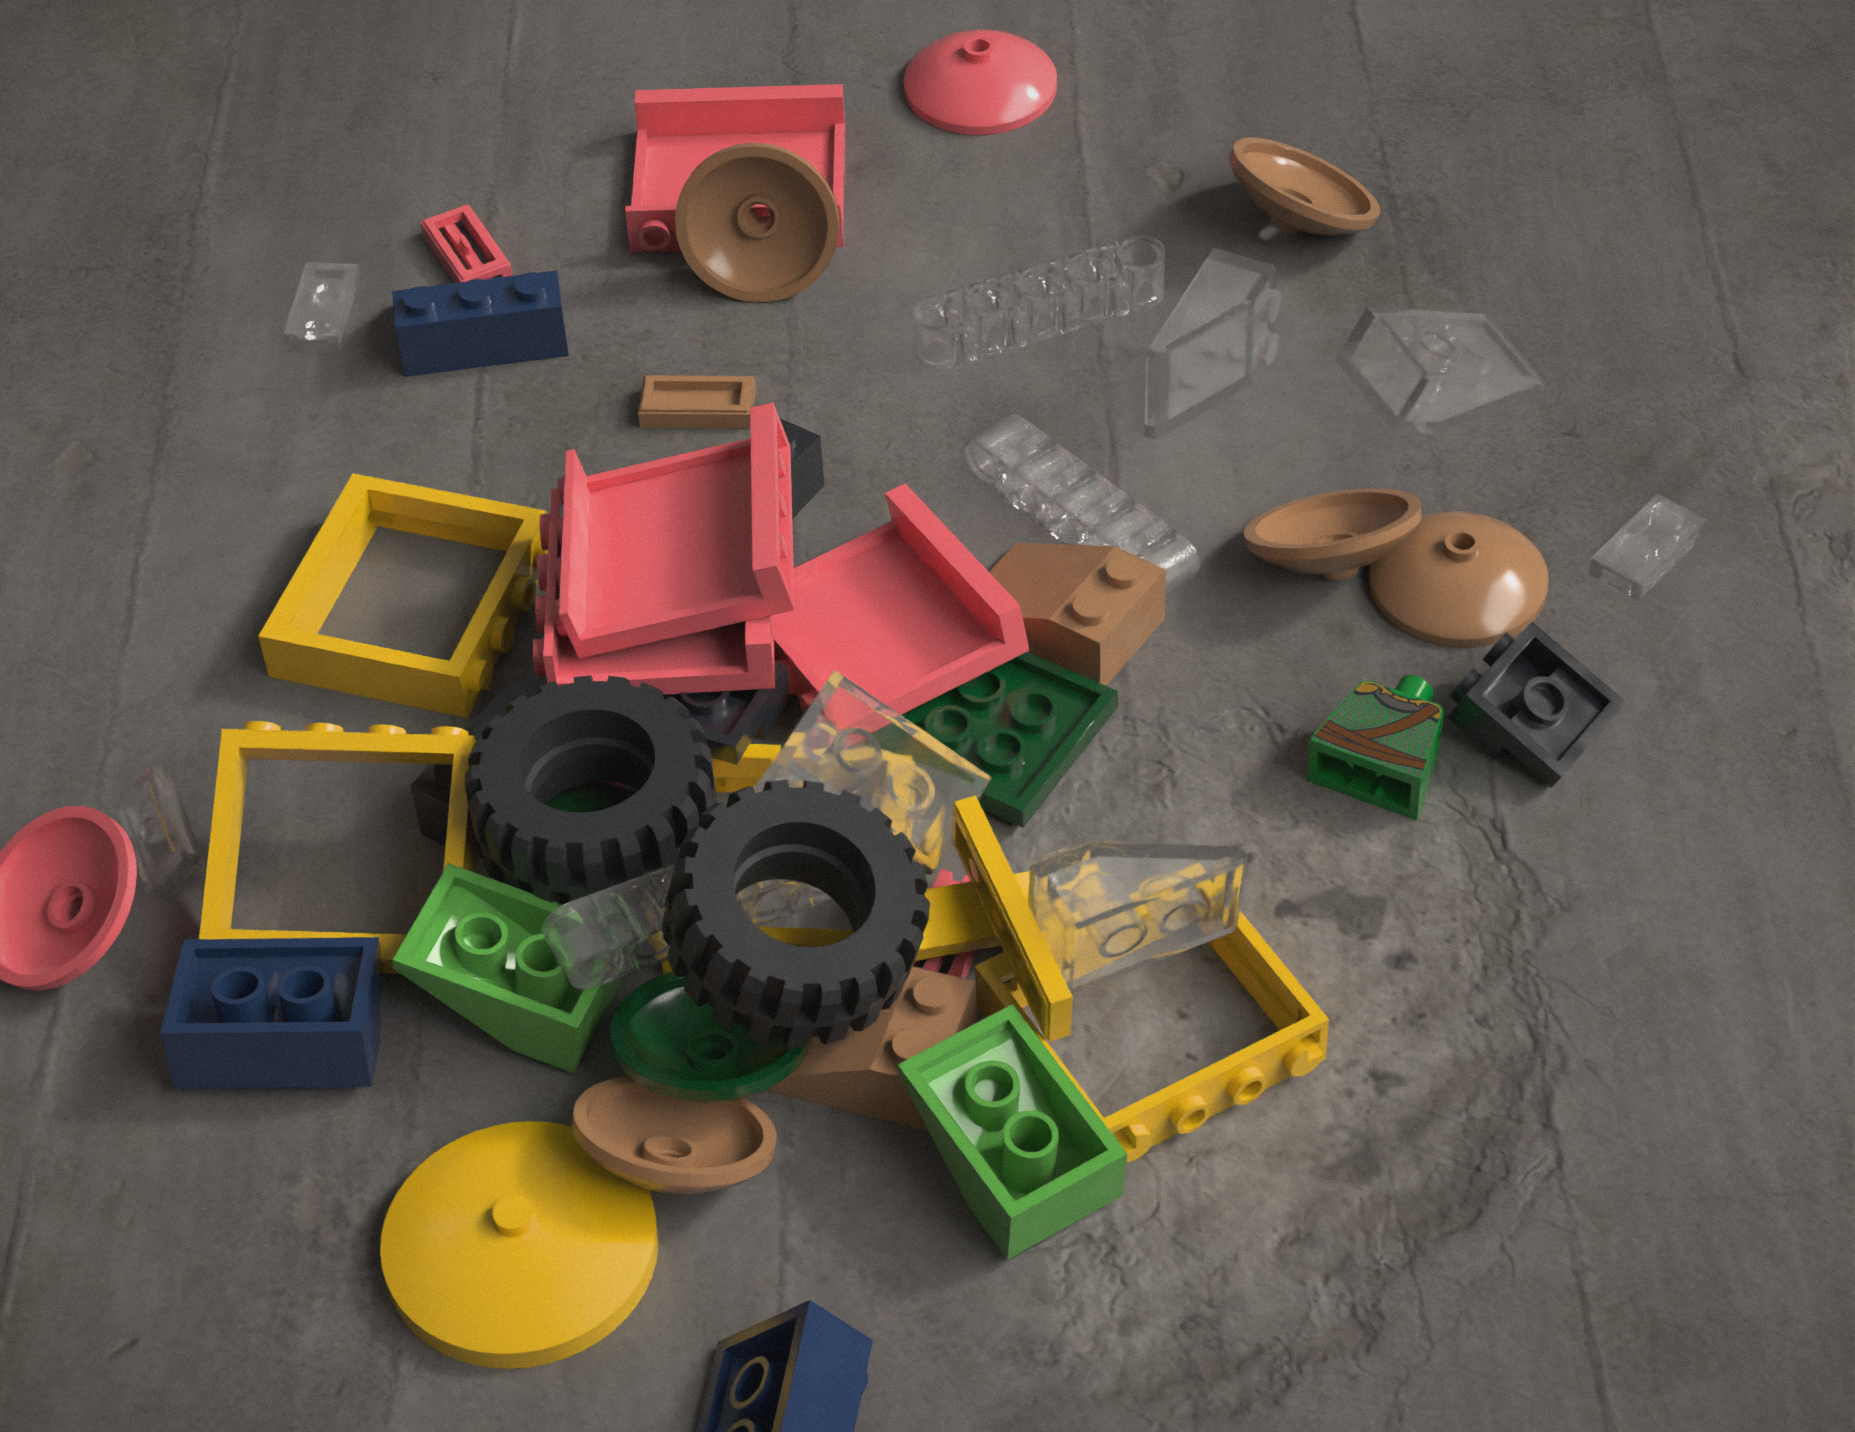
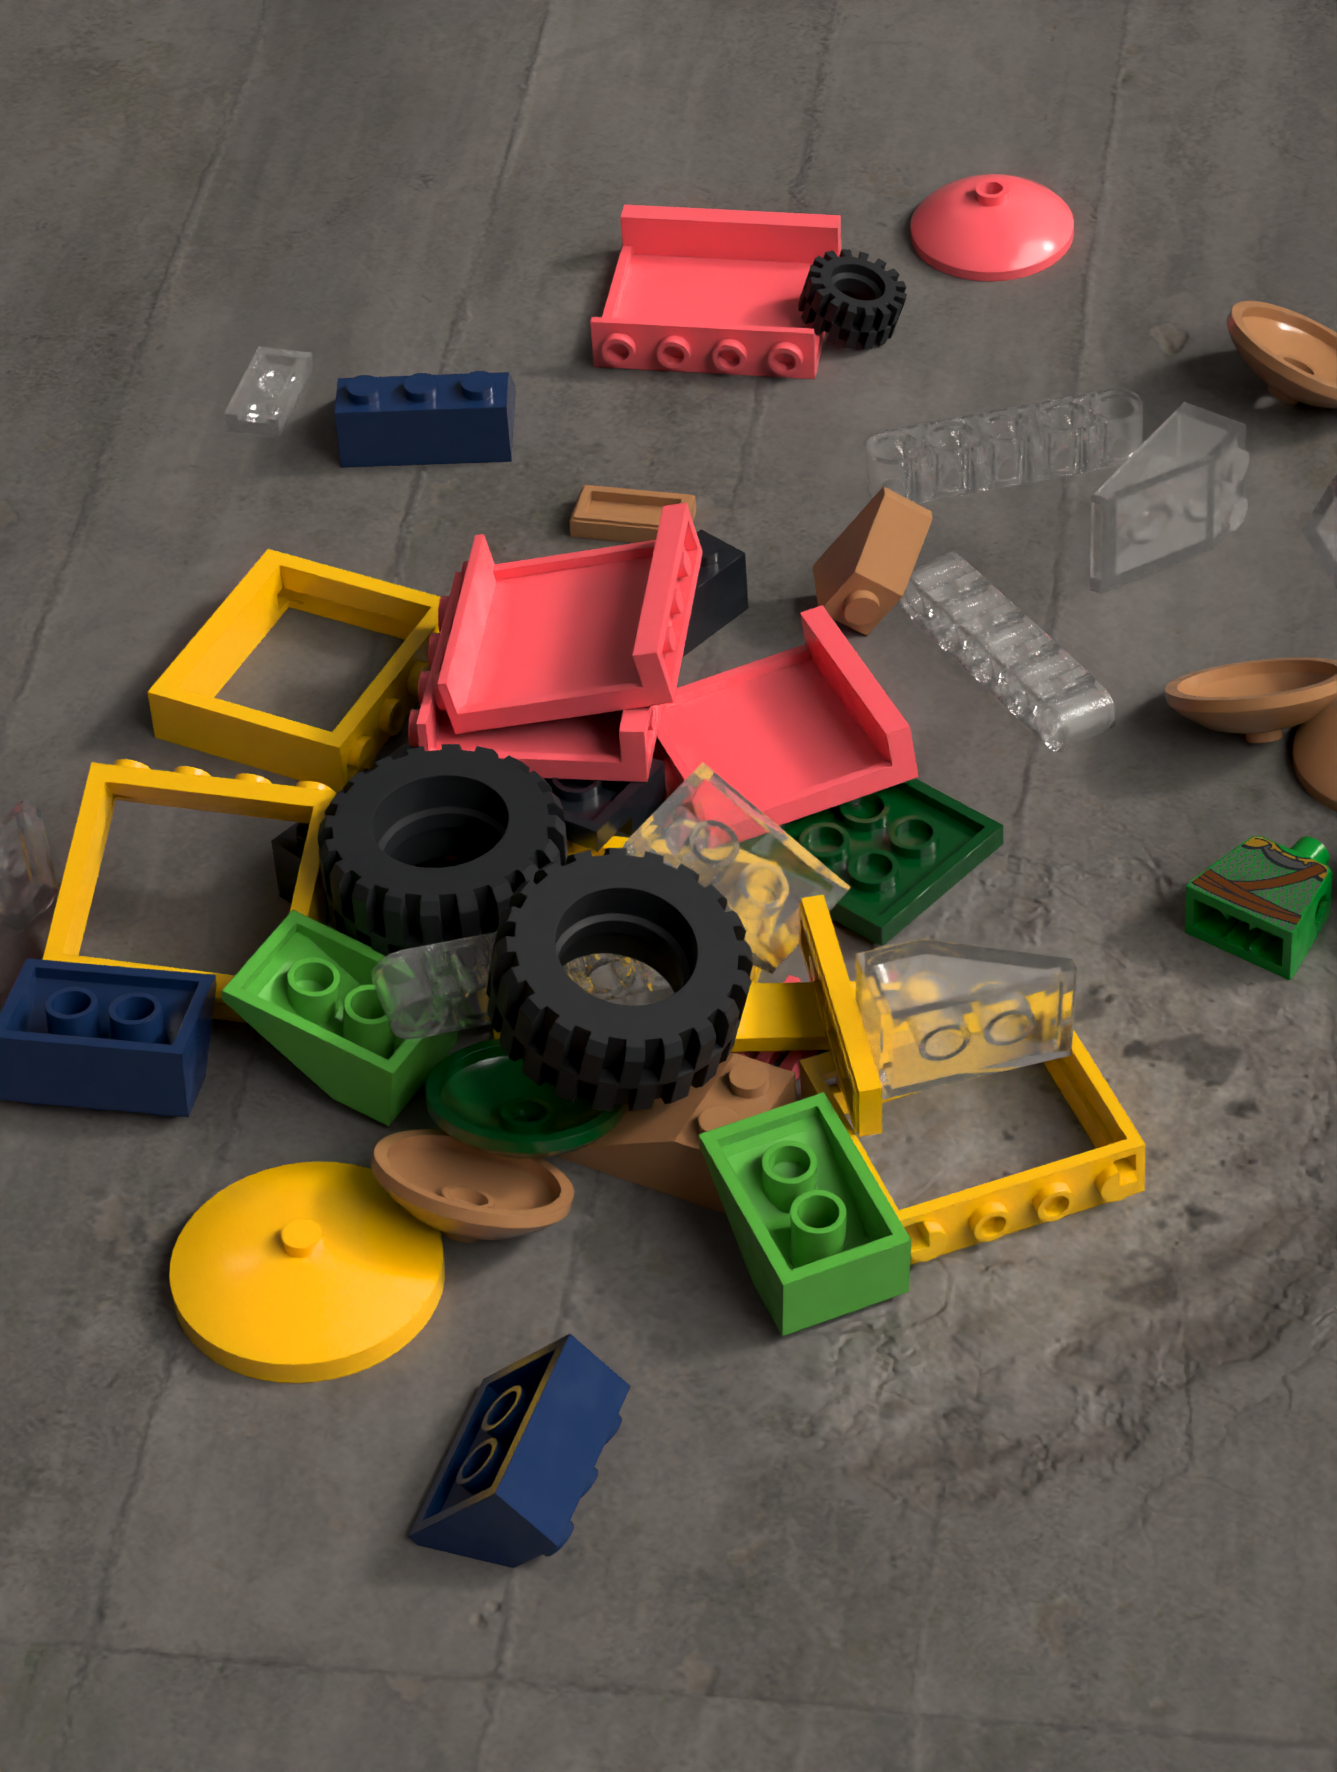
camera: 10 degrees right, 5 degrees down
(497, 262) = (403, 352): coral tile -> none
(748, 253) = (699, 368): medium nougat dish -> none
(868, 165) = (852, 299): none -> black tyre
(941, 432) = (871, 561): none -> medium nougat slope
(1084, 603) = (988, 742): medium nougat slope -> none

